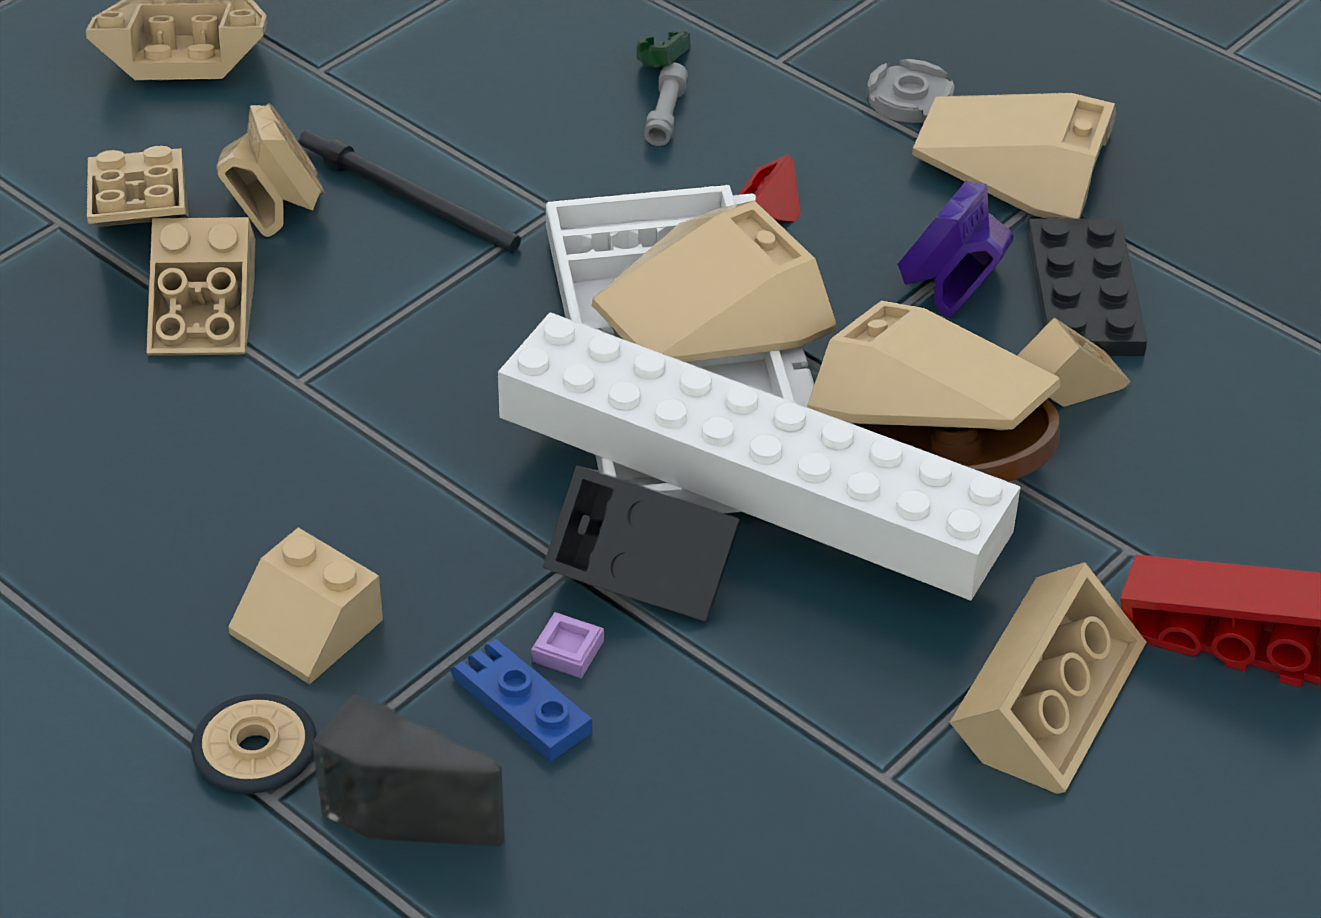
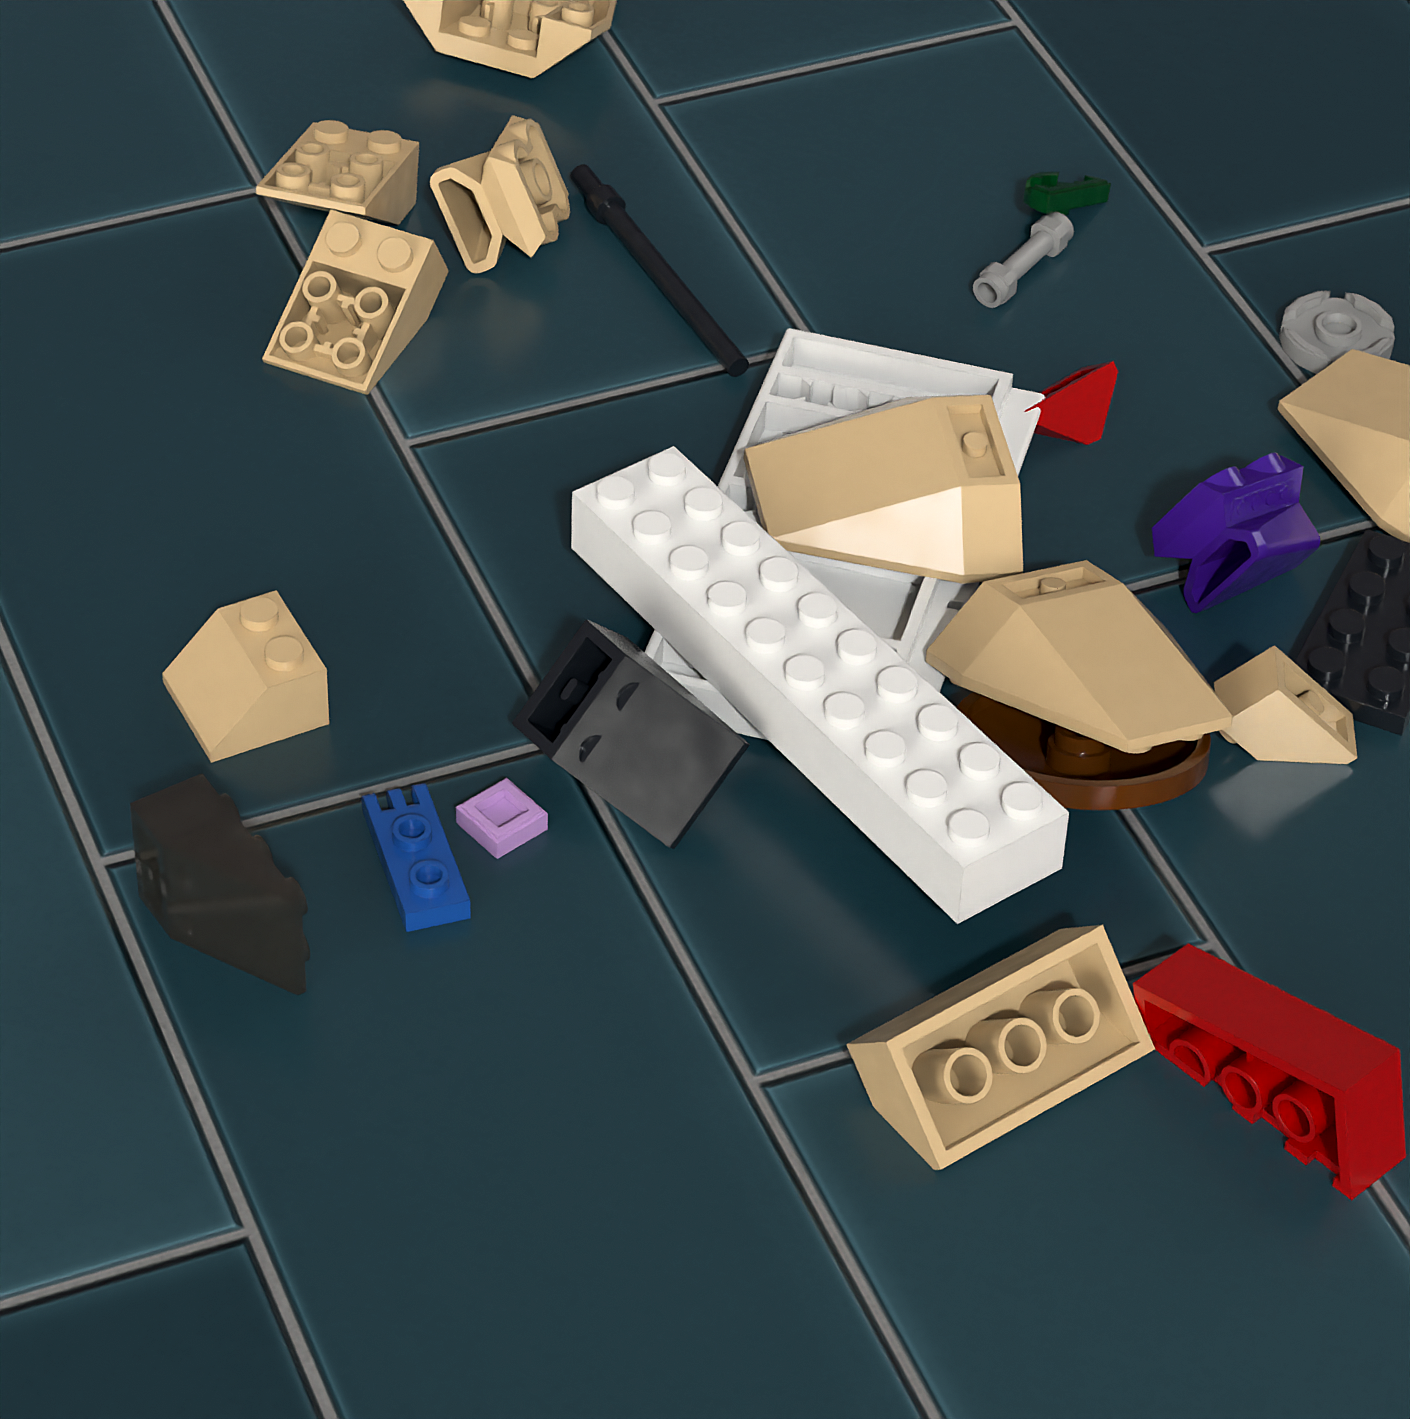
camera: 25 degrees right, 0 degrees up
(244, 771) = (73, 787): tan wheel -> none

